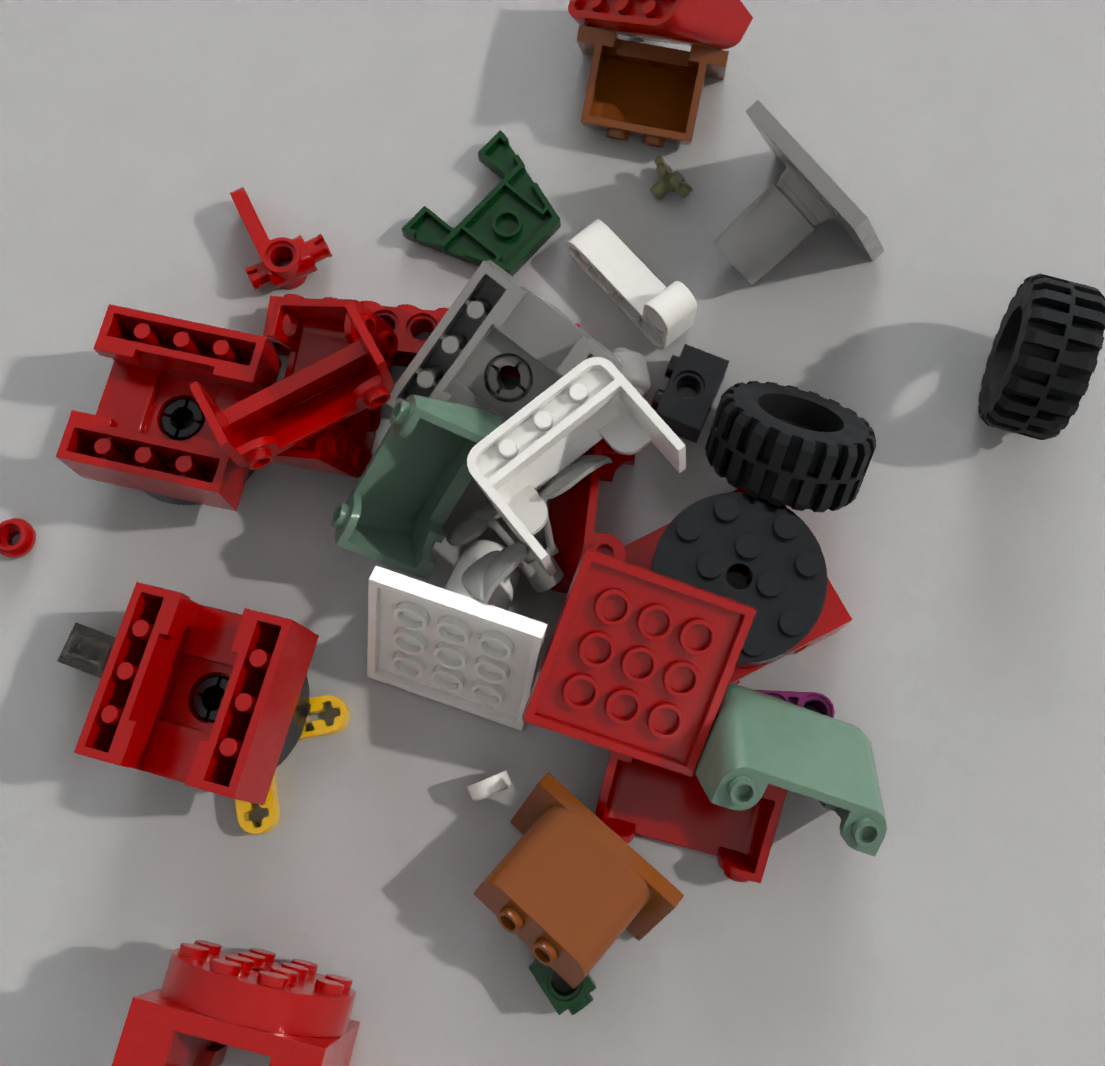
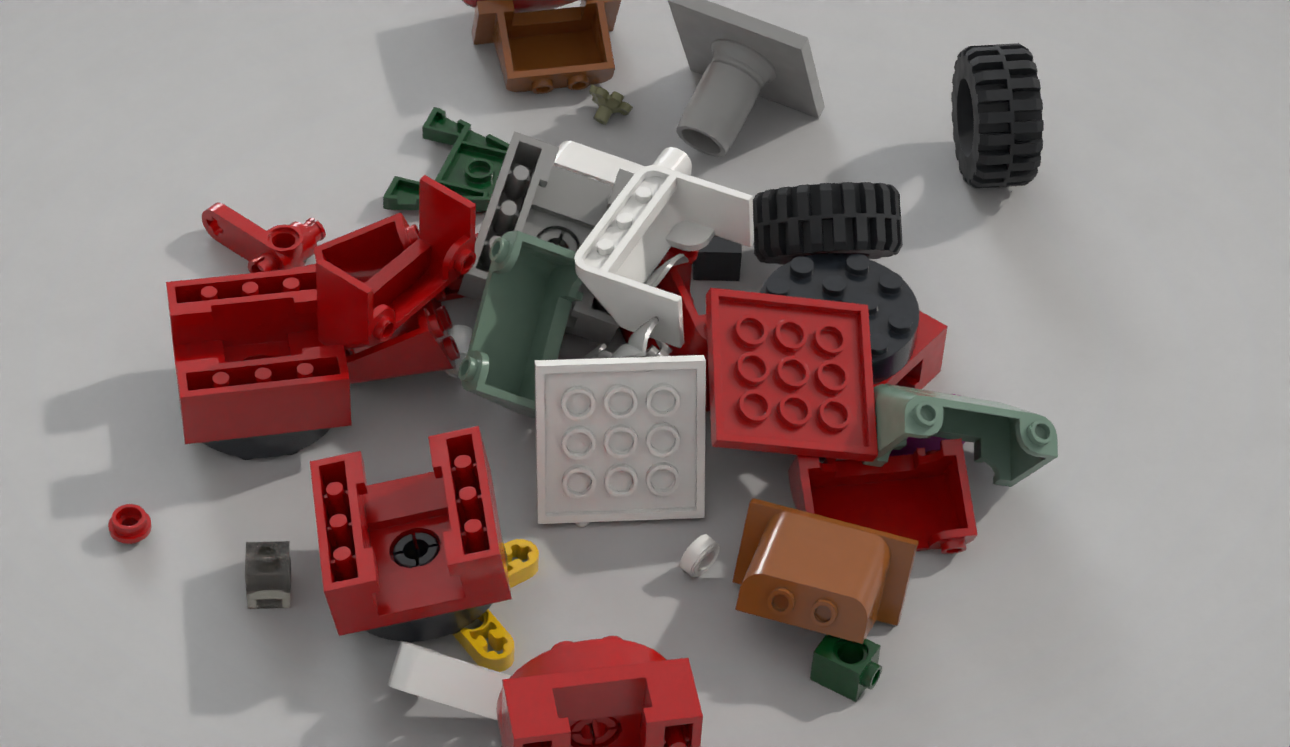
camera: 30 degrees left, 30 degrees down
(196, 876) = (446, 679): none -> white beam

